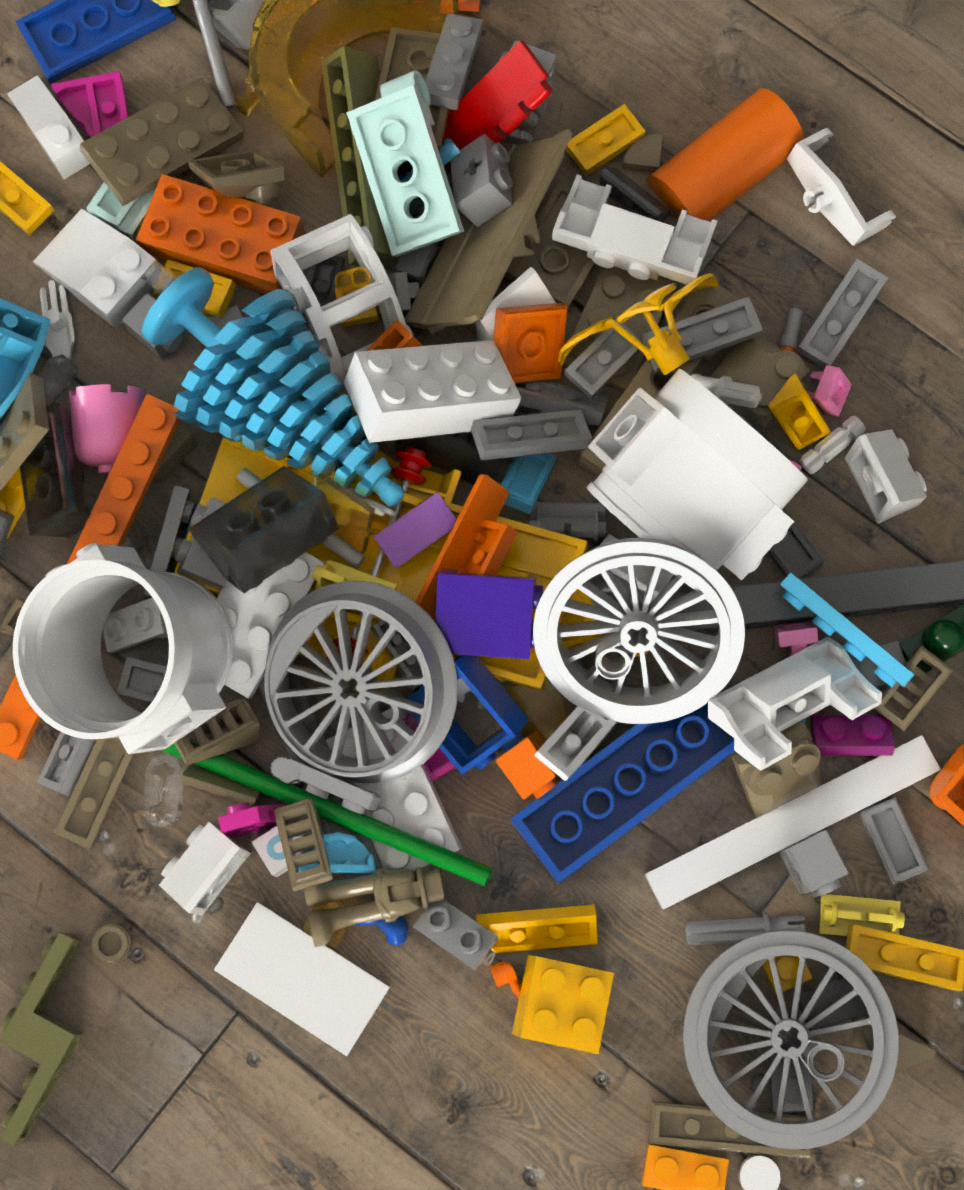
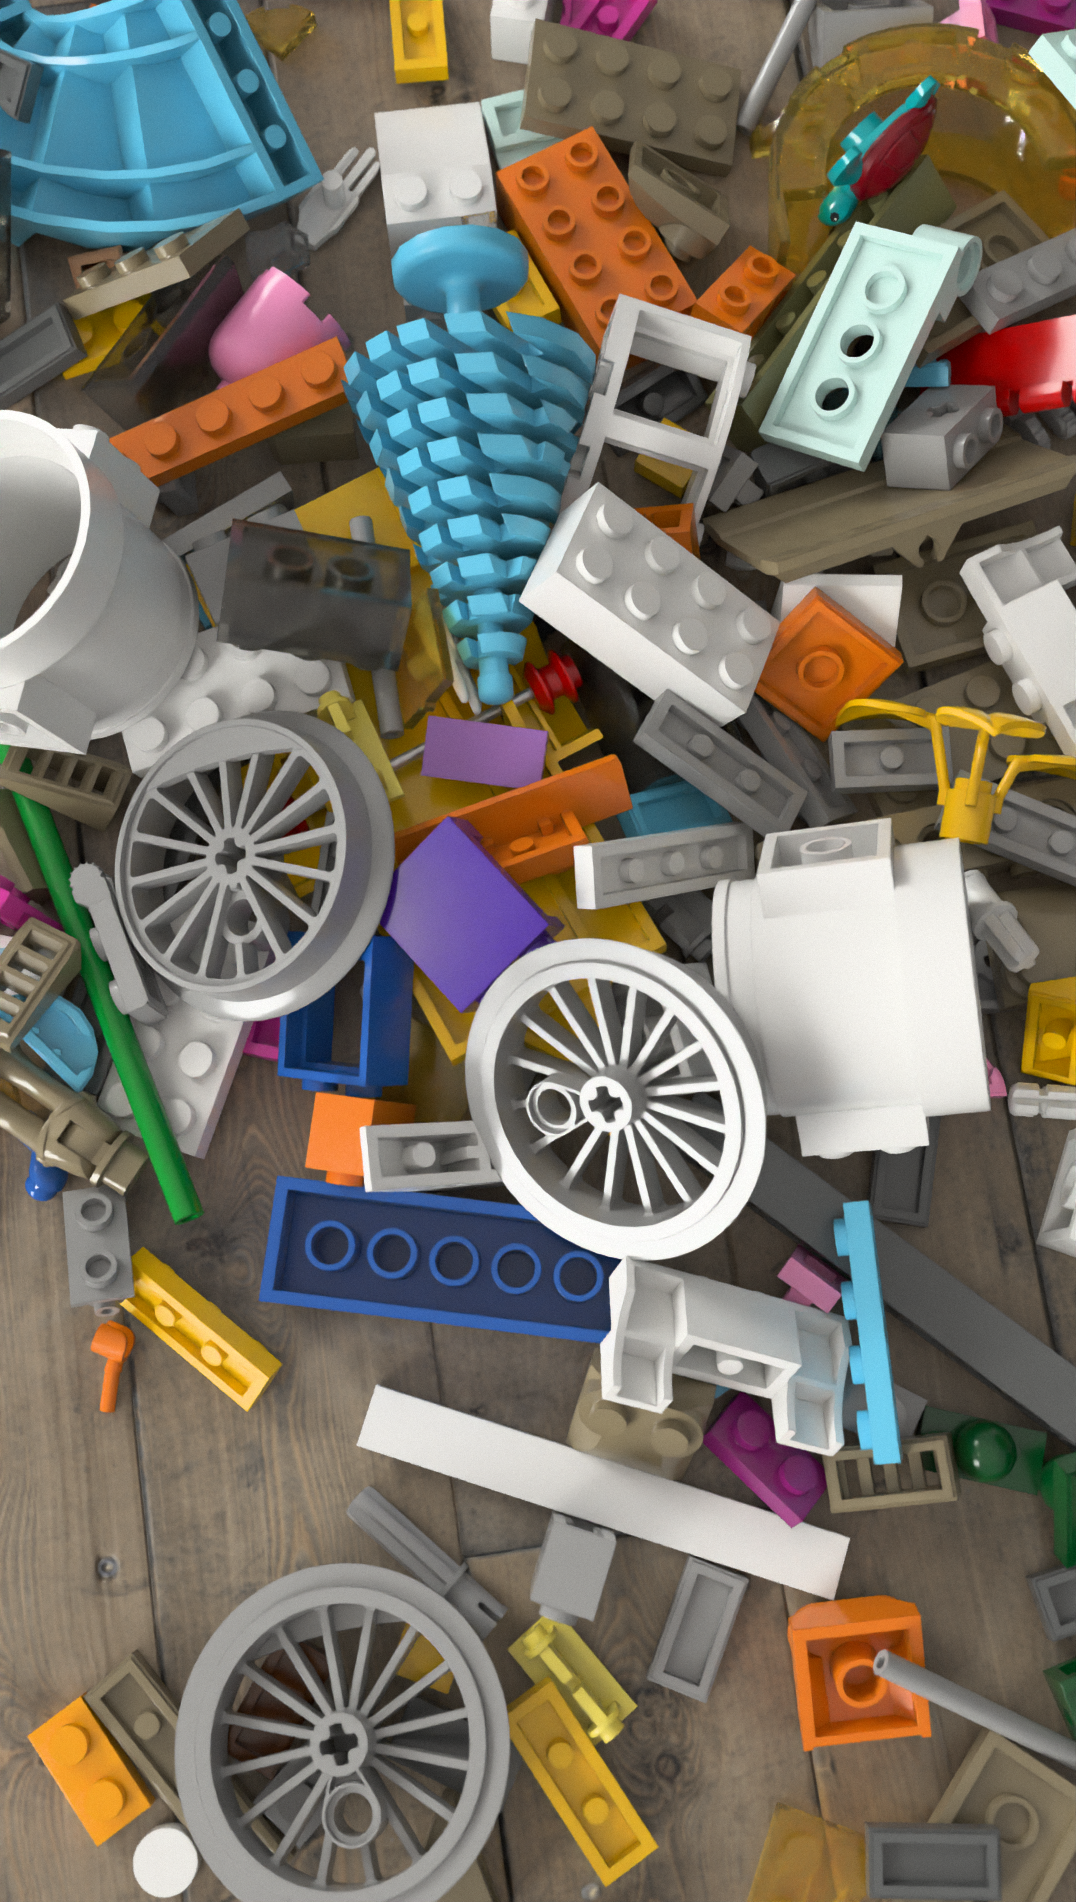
camera: 40 degrees right, 0 degrees up
(319, 194) = (745, 293): none -> orange brick
(322, 65) = (880, 153): none -> animal
(350, 272) = (676, 413): yellow piece -> none
(550, 505) = (662, 864): none -> white plate
(563, 1004) = (136, 1443): yellow brick -> none
(732, 1063) = (252, 1743): none -> reddish brown tile

